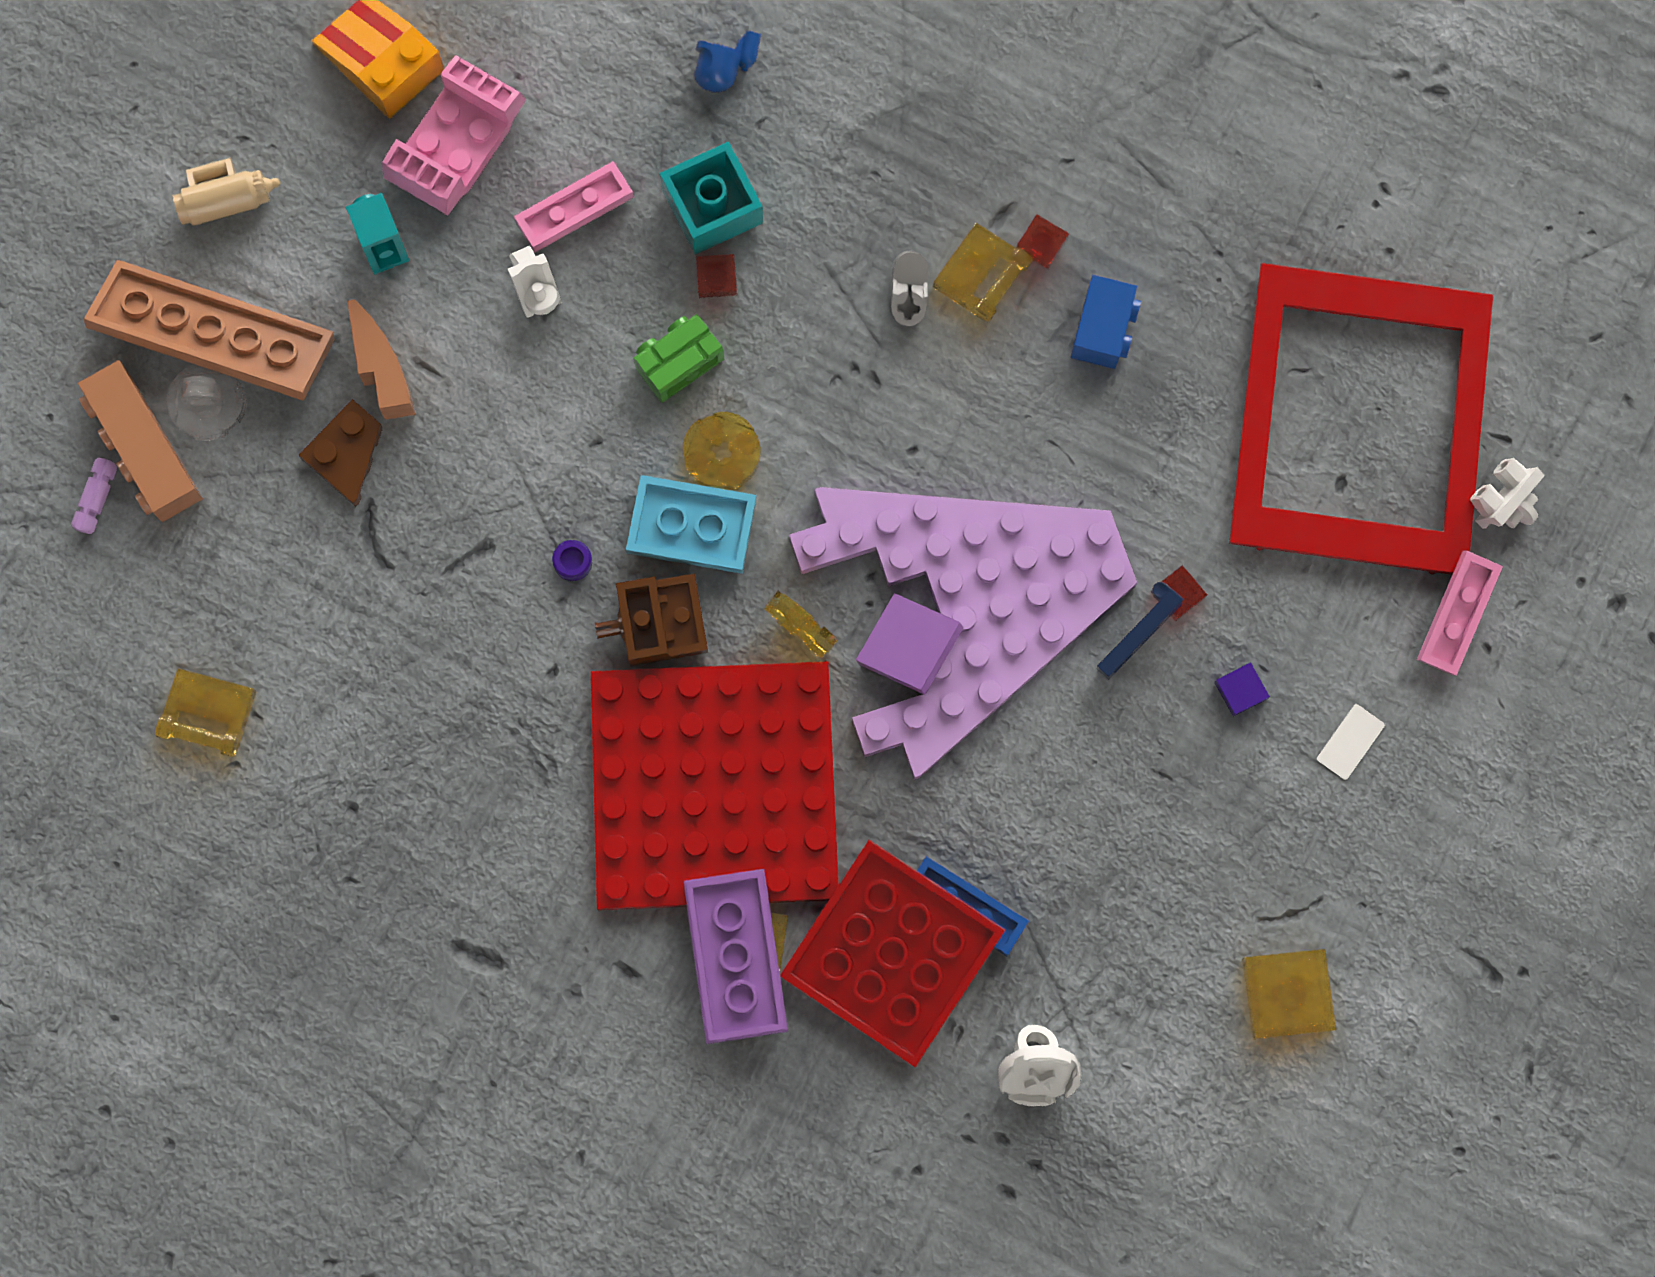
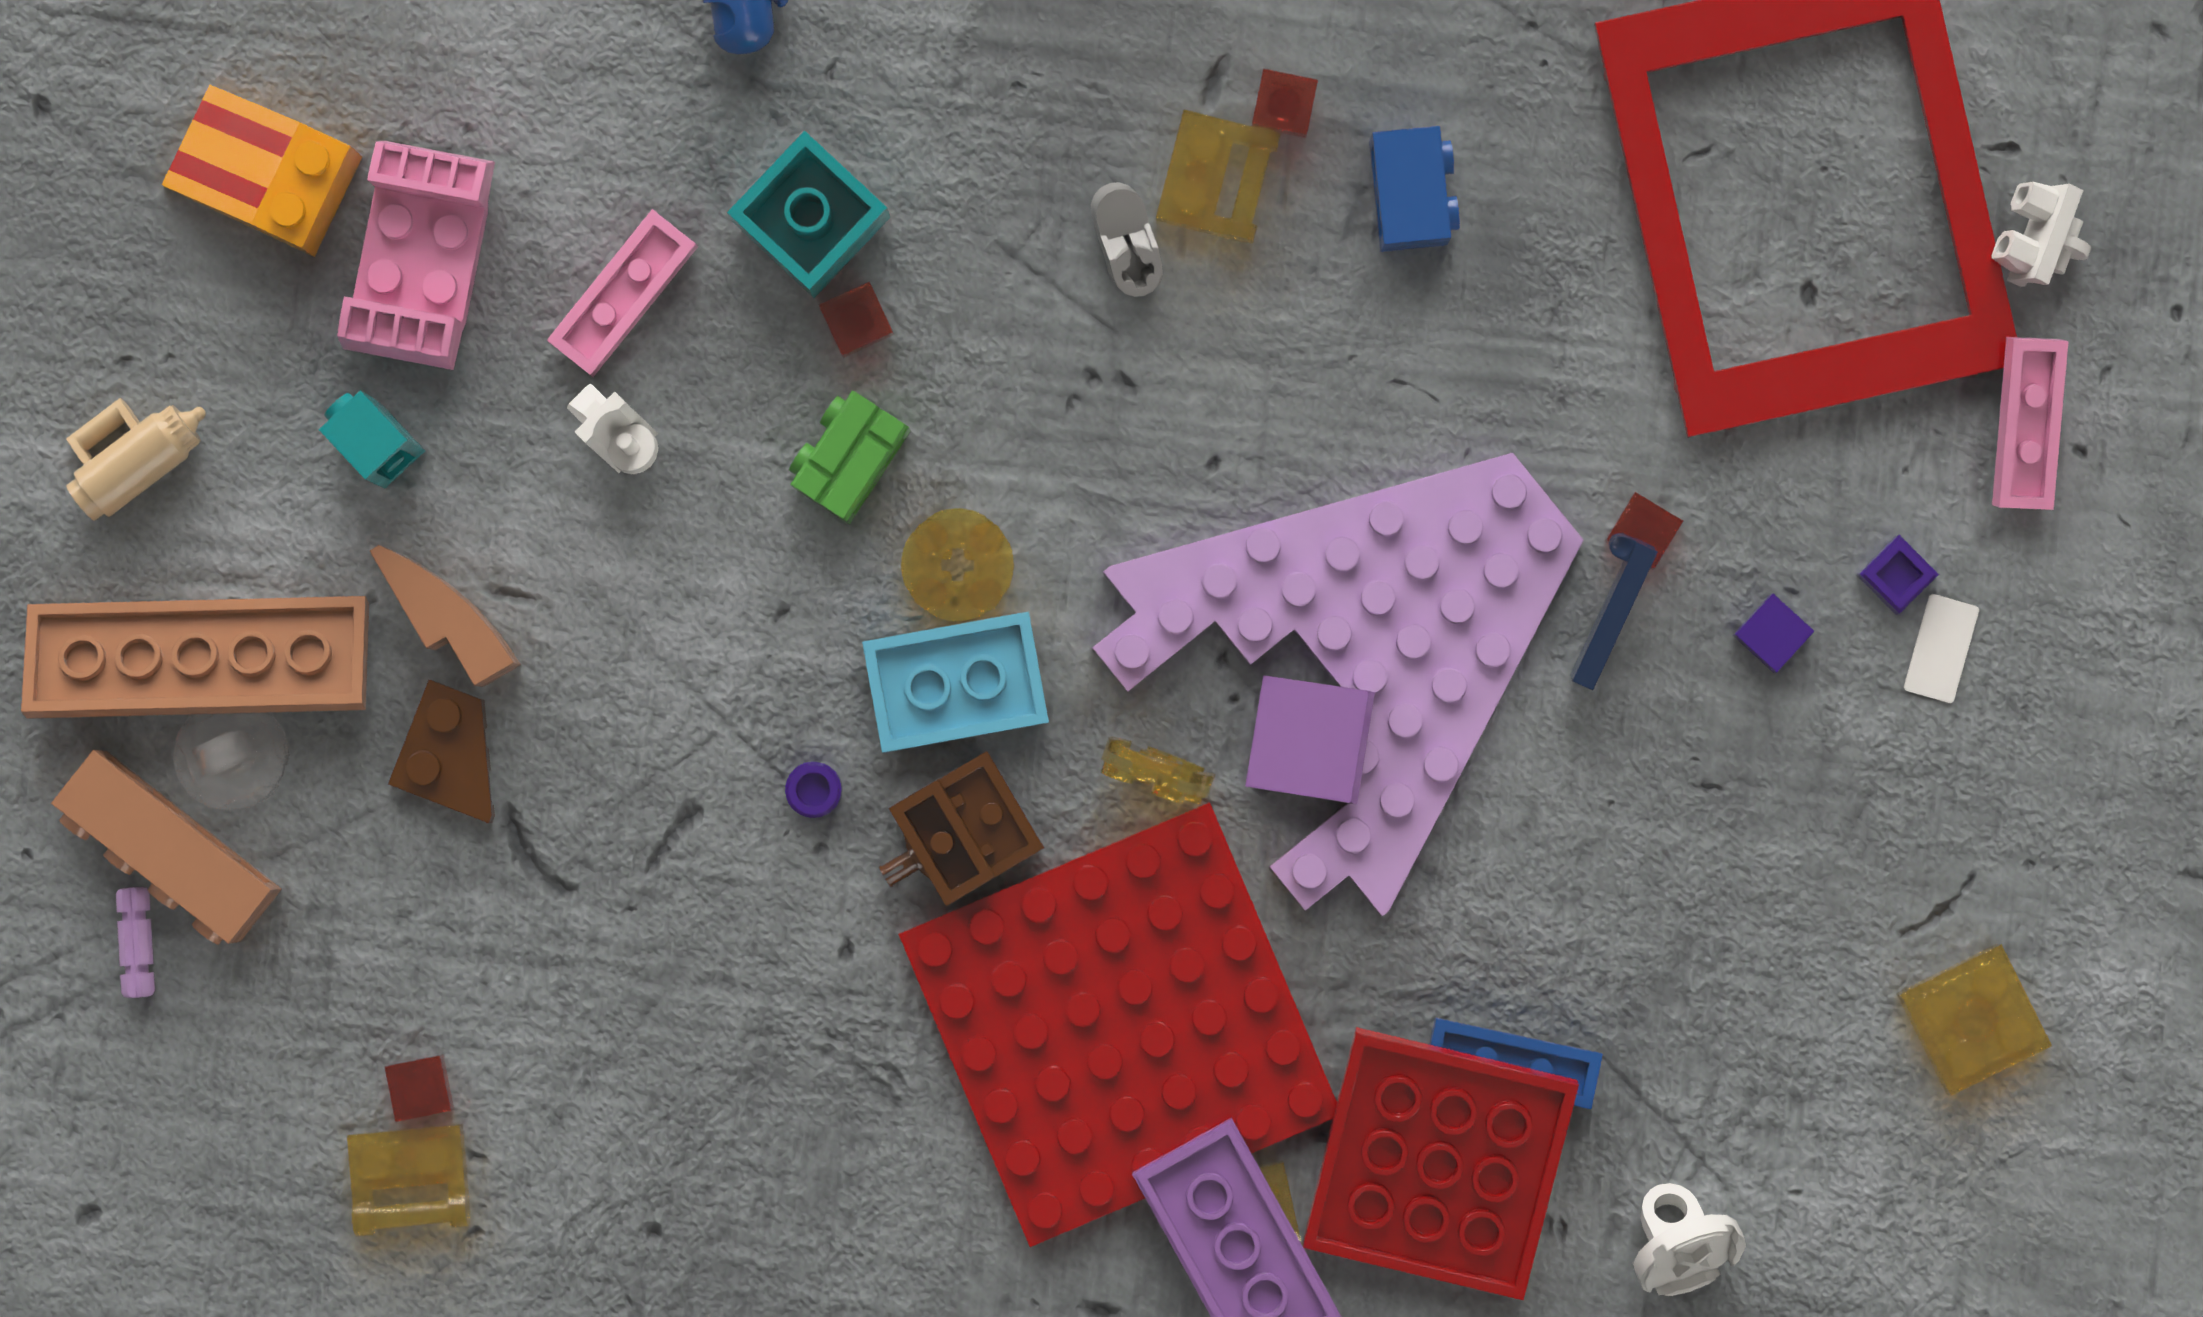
camera: 15 degrees left, 10 degrees up
(237, 656) = (419, 1088): none -> clear red tile
(1337, 682) = (1897, 574): none -> dark purple tile

